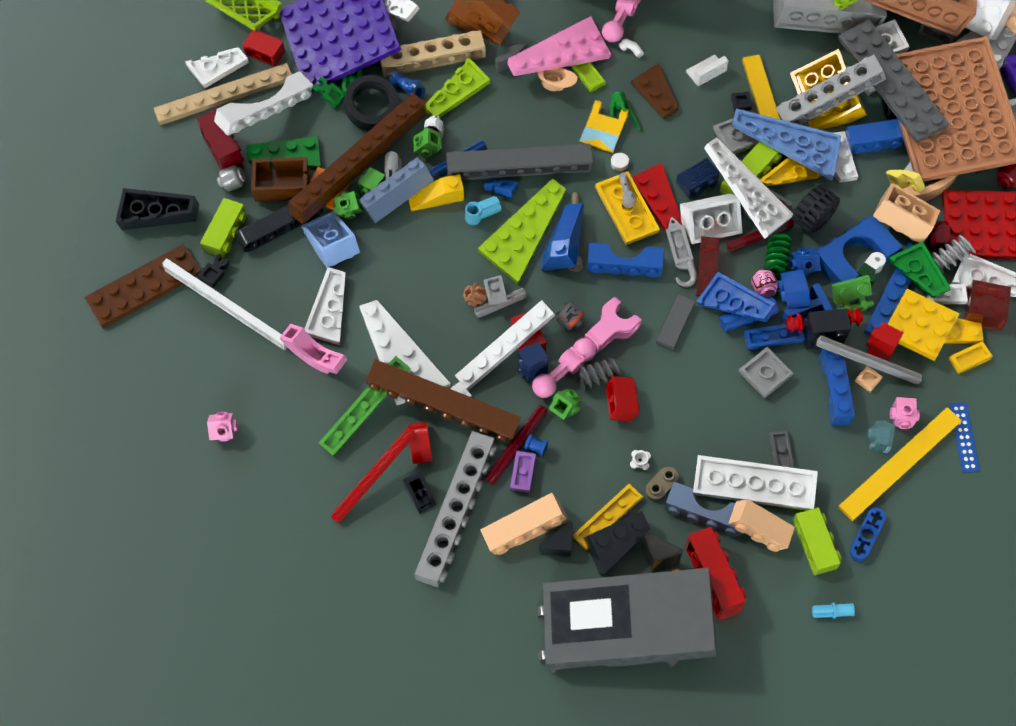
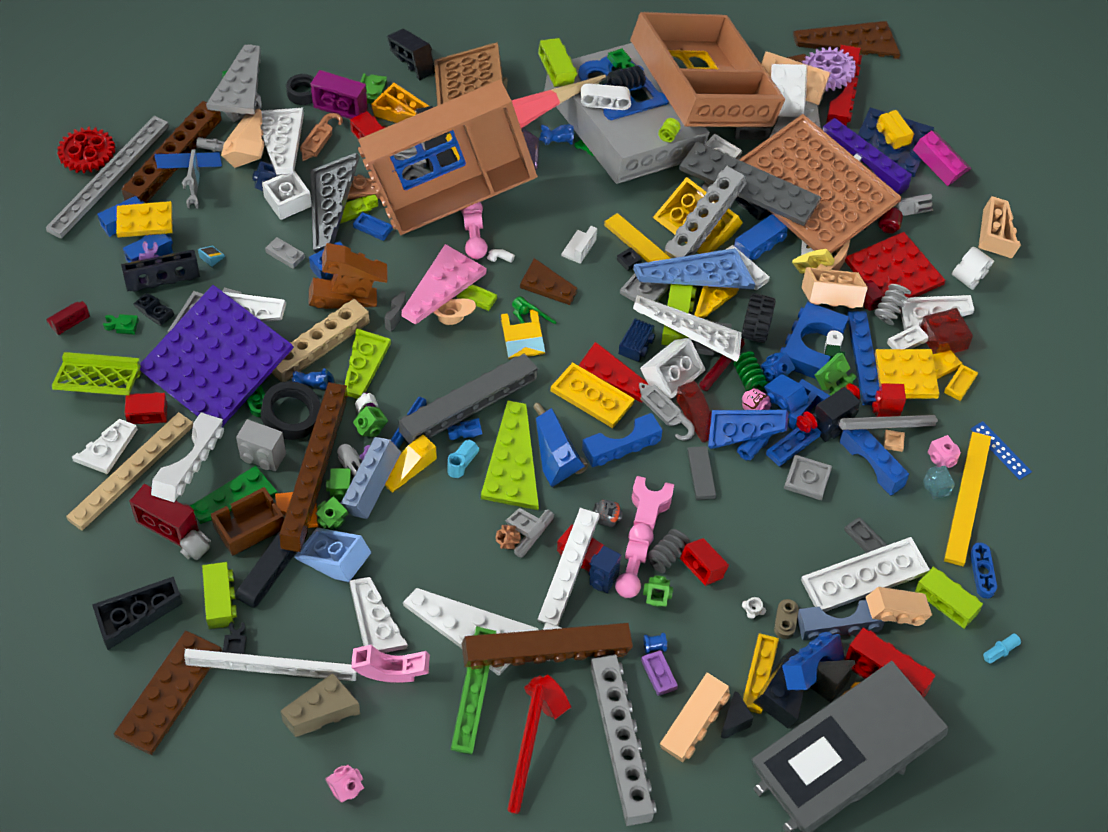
camera: 35 degrees left, 10 degrees down
(241, 356) = (320, 705): none -> dark tan wedge
(328, 121) = (261, 445): none -> light grey brick
(331, 93) = (239, 418): green plate -> none
(419, 492) = (578, 742): black slope -> none
(516, 444) = (635, 653): dark red axle -> none
(619, 162) = (557, 358): white tile -> none
(628, 197) = (590, 384): light grey piece -> none
(630, 533) = (802, 667): none -> blue arch
(921, 269) = (876, 327): green wing -> none

